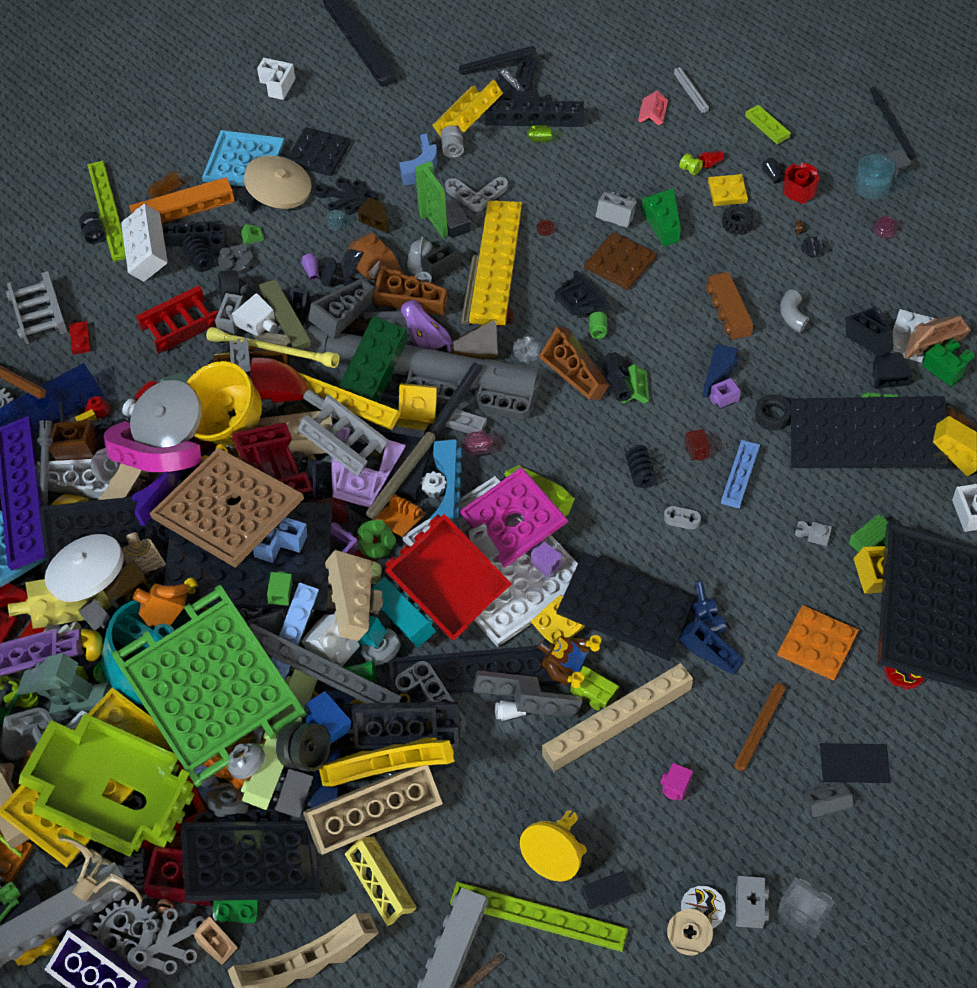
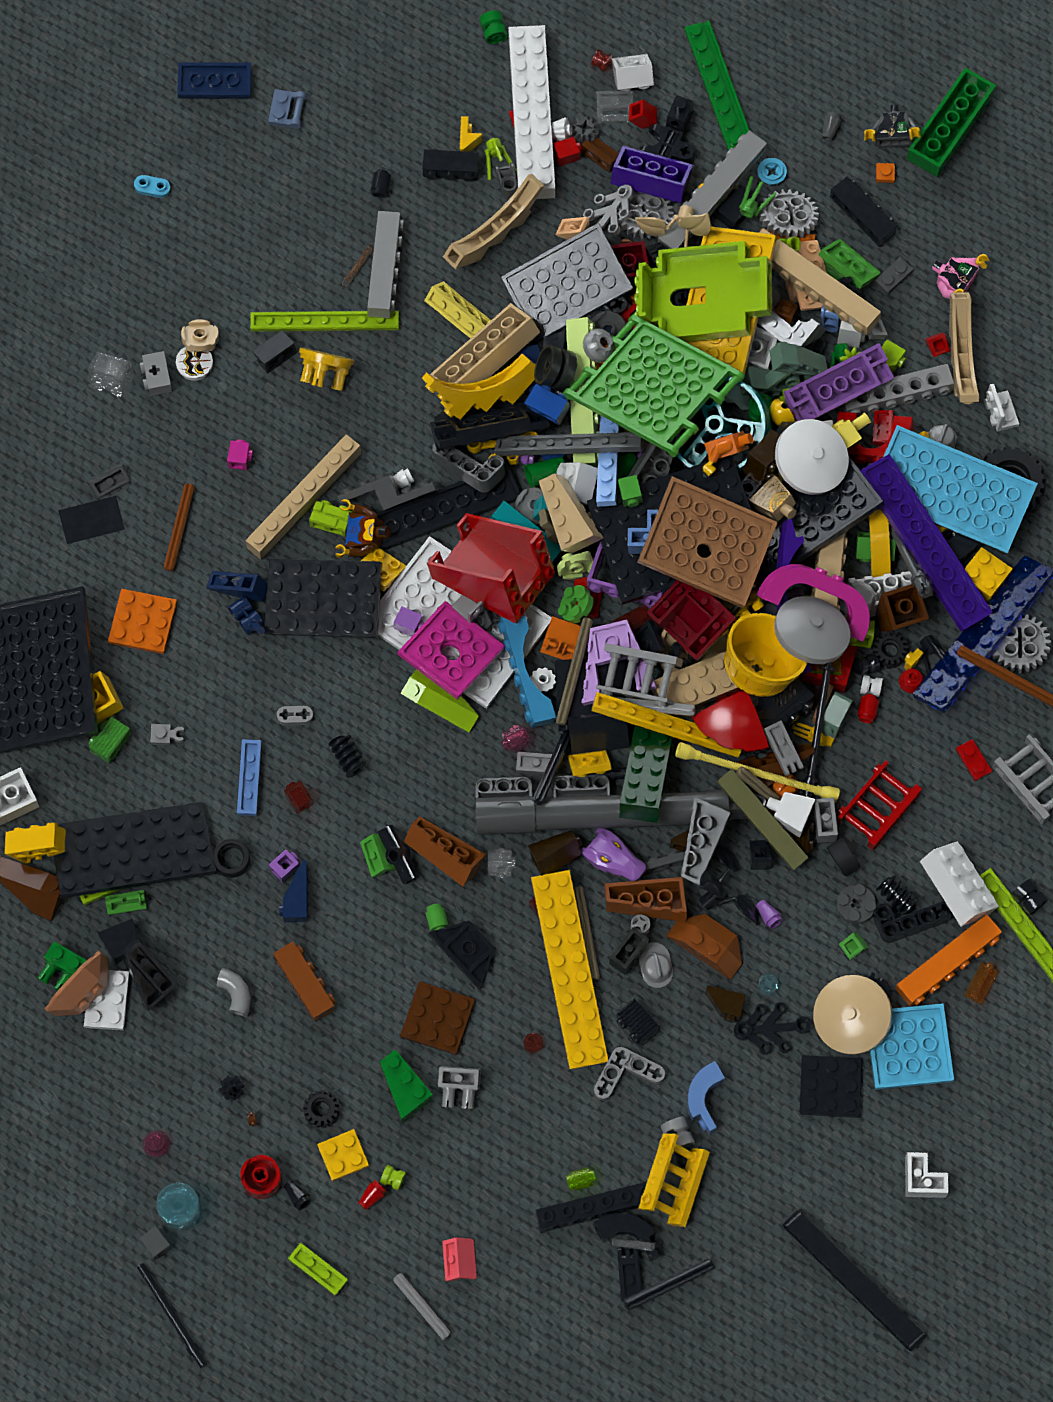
camera: 160 degrees right, 15 degrees up
(431, 198) = (660, 1009): bright green fence -> none

